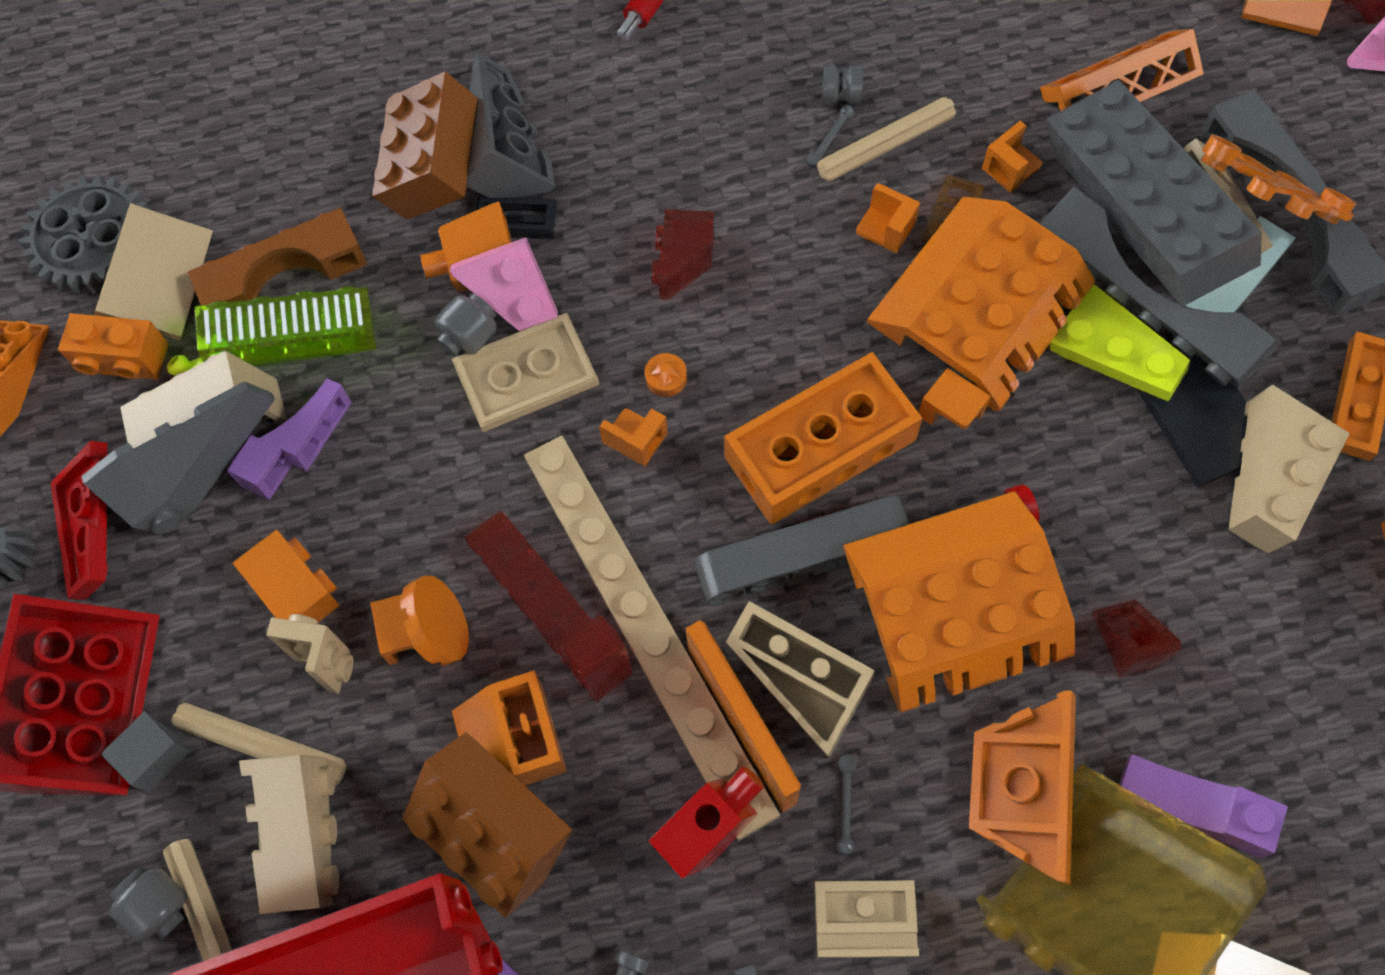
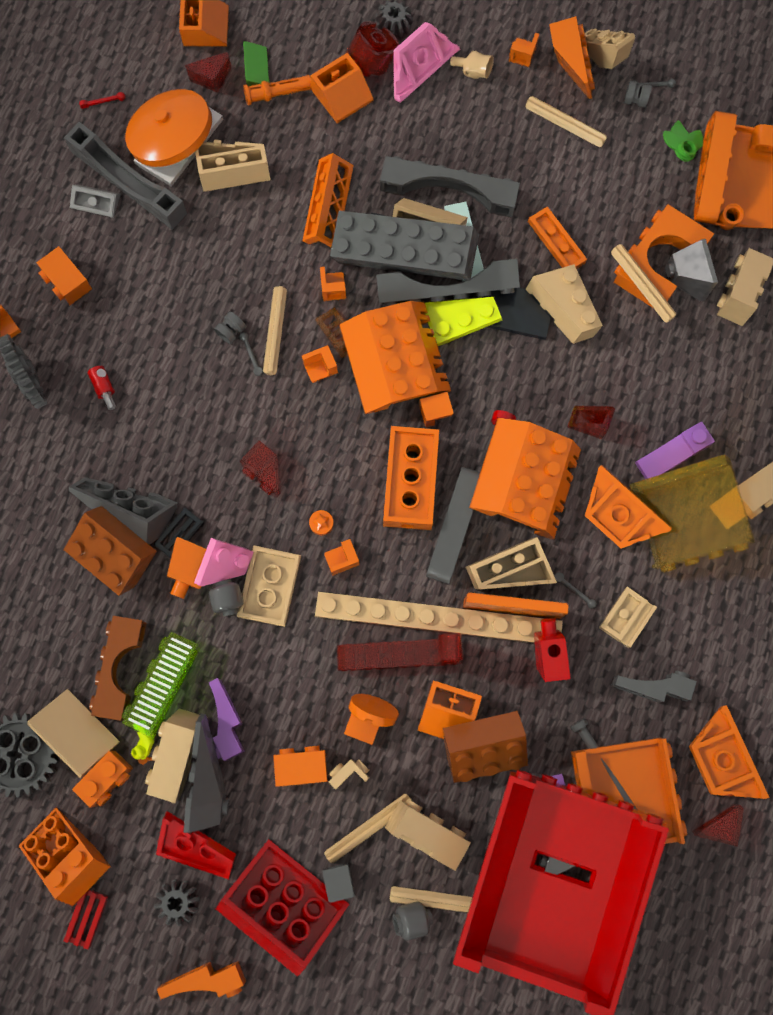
camera: 60 degrees left, 10 degrees up
(1265, 183) = (446, 188): orange plant -> none

